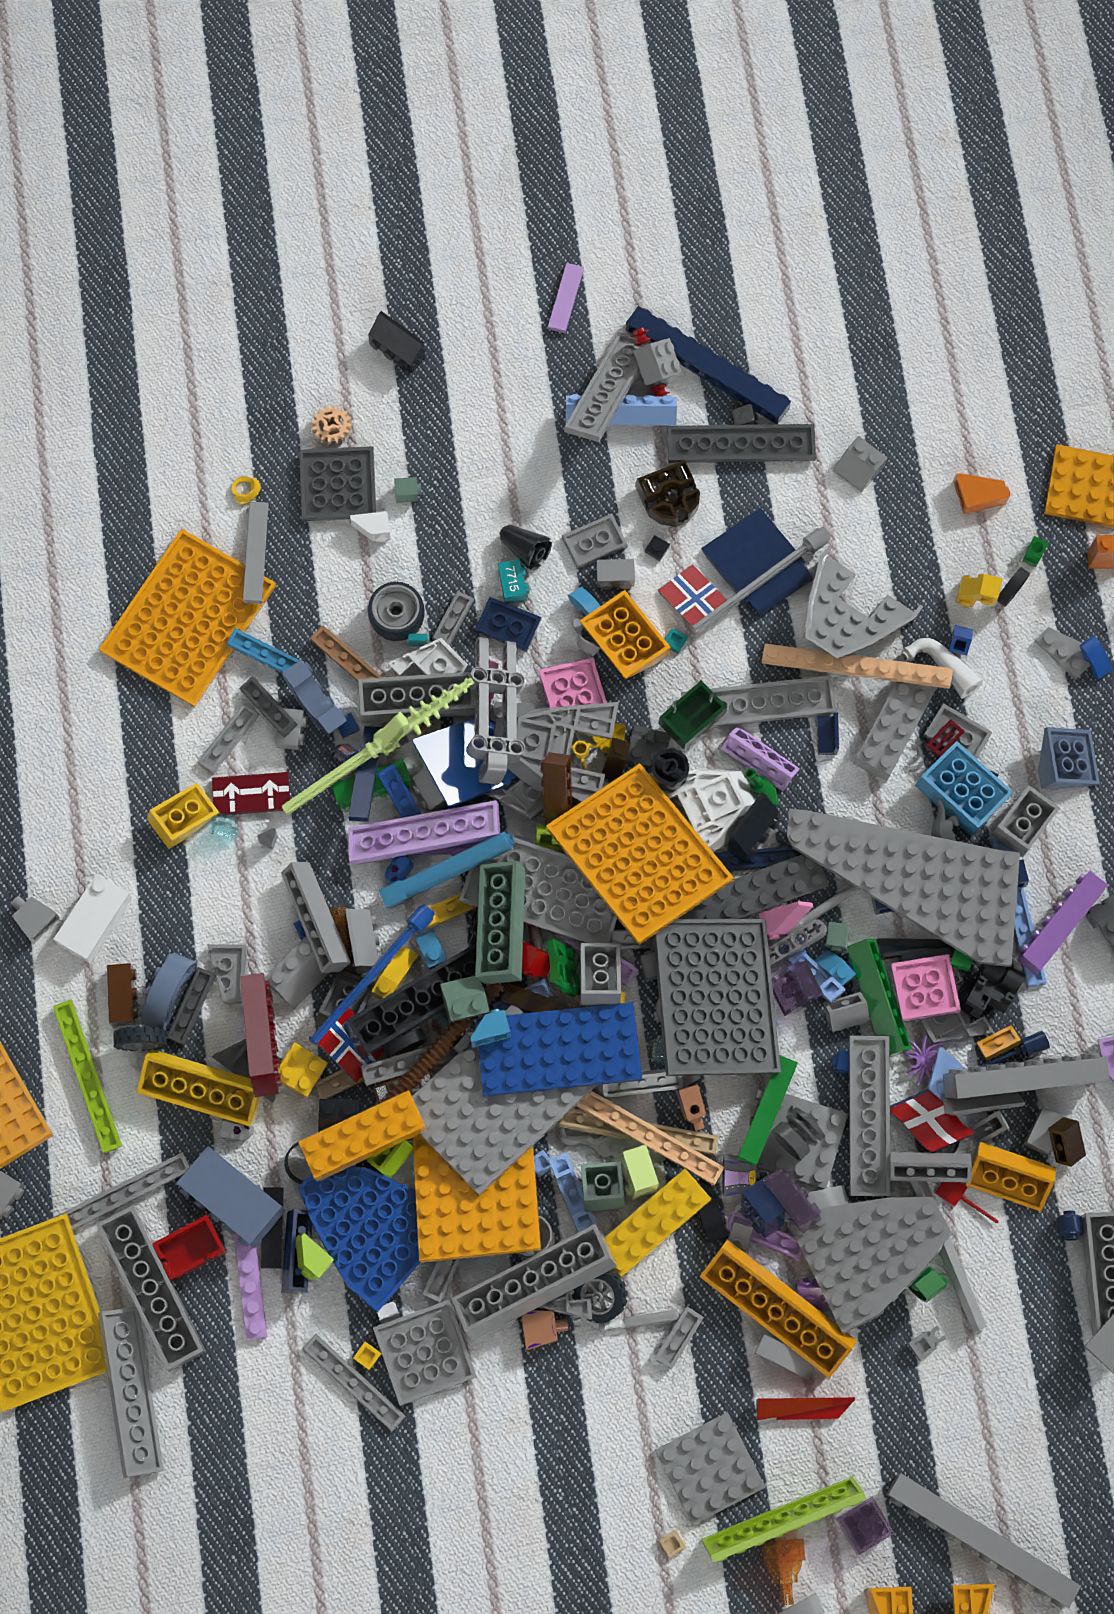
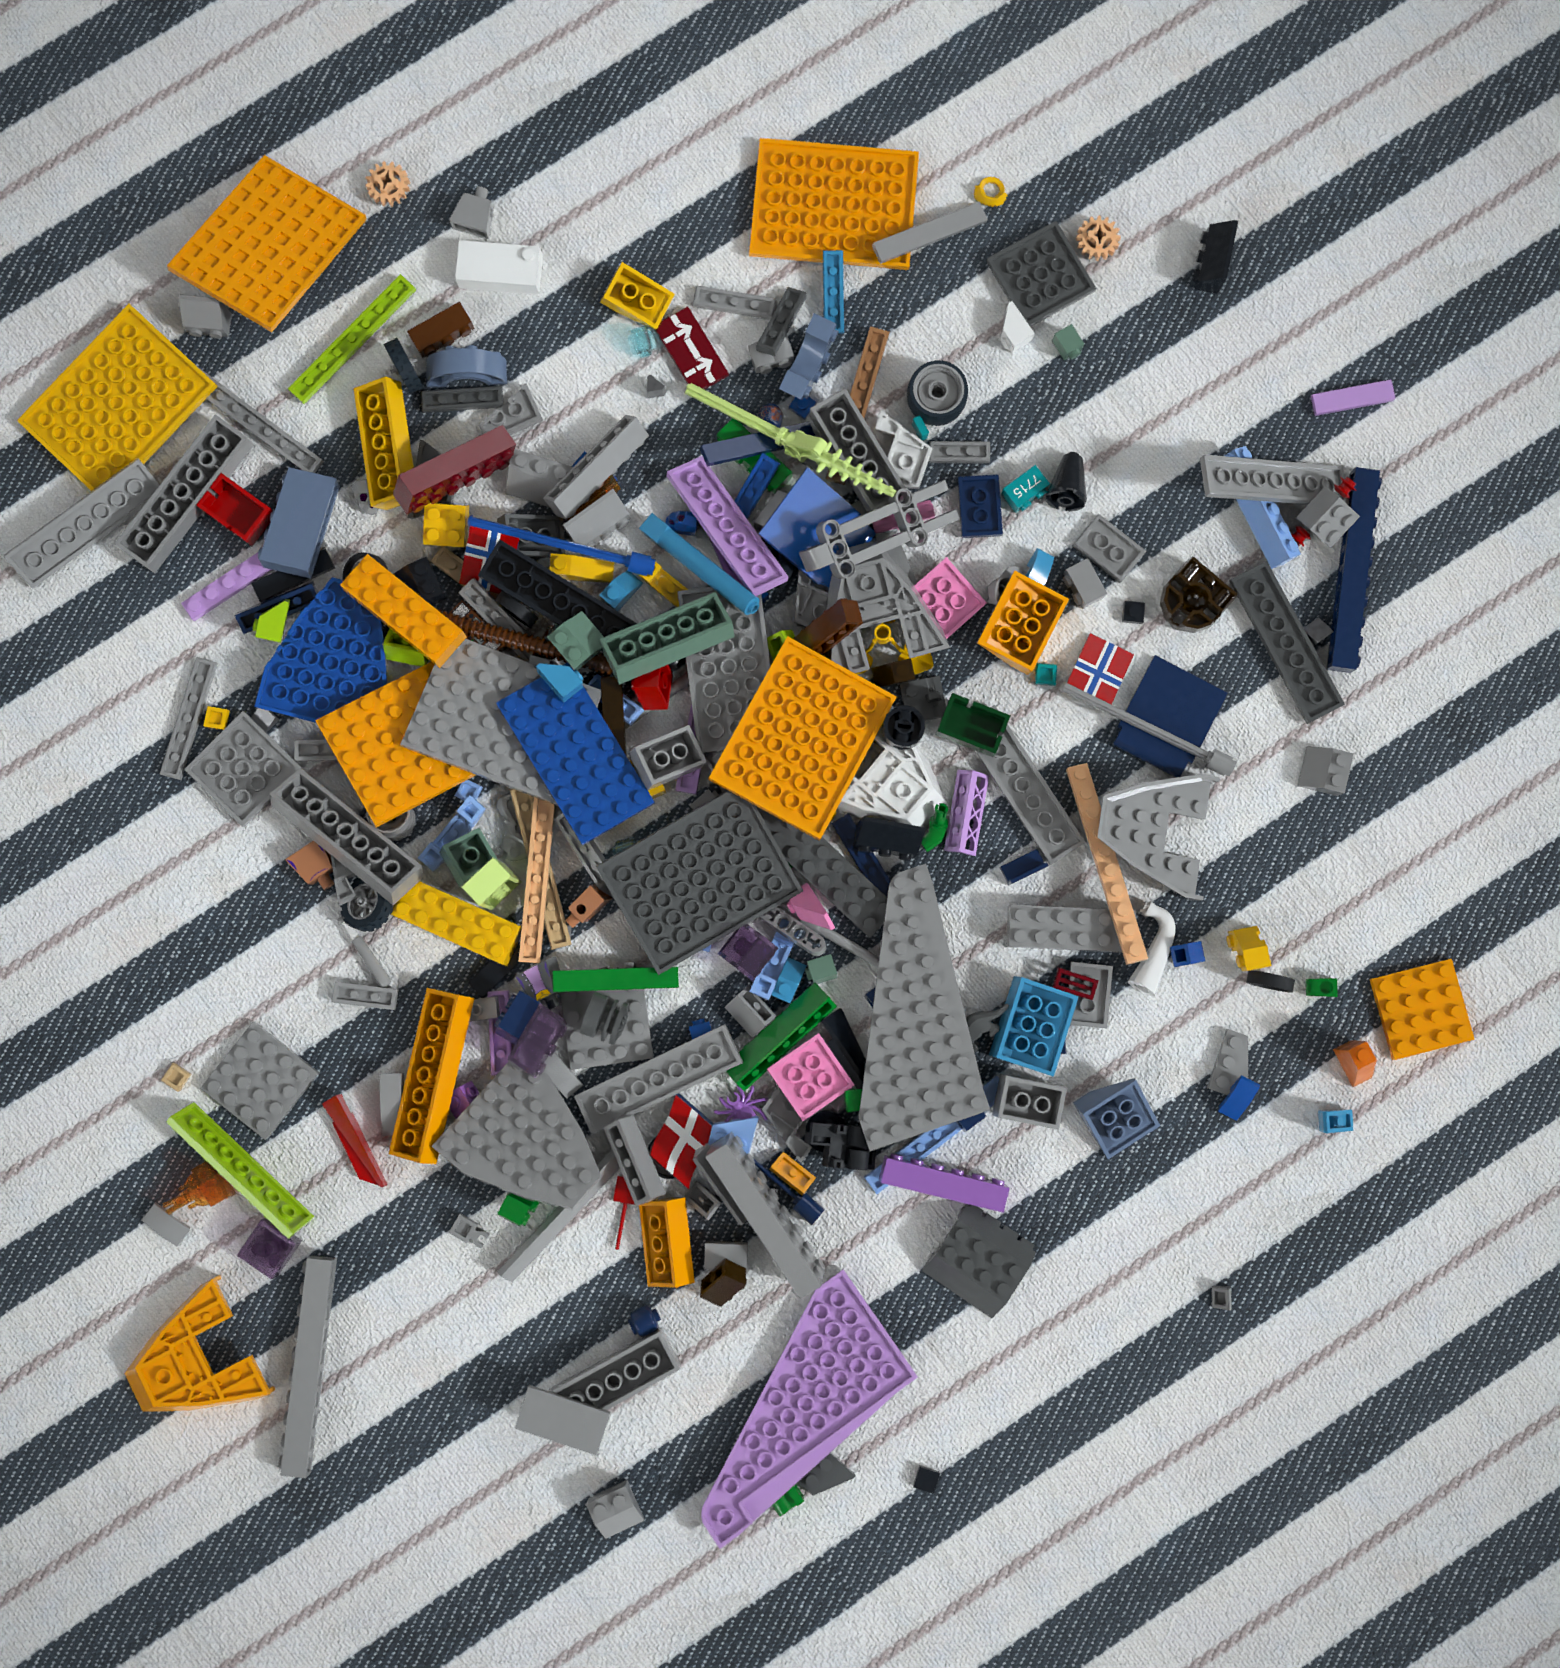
camera: 65 degrees right, 10 degrees up
(563, 968) = (659, 719): green plate -> none
(980, 493) = (1357, 904): orange slope -> none

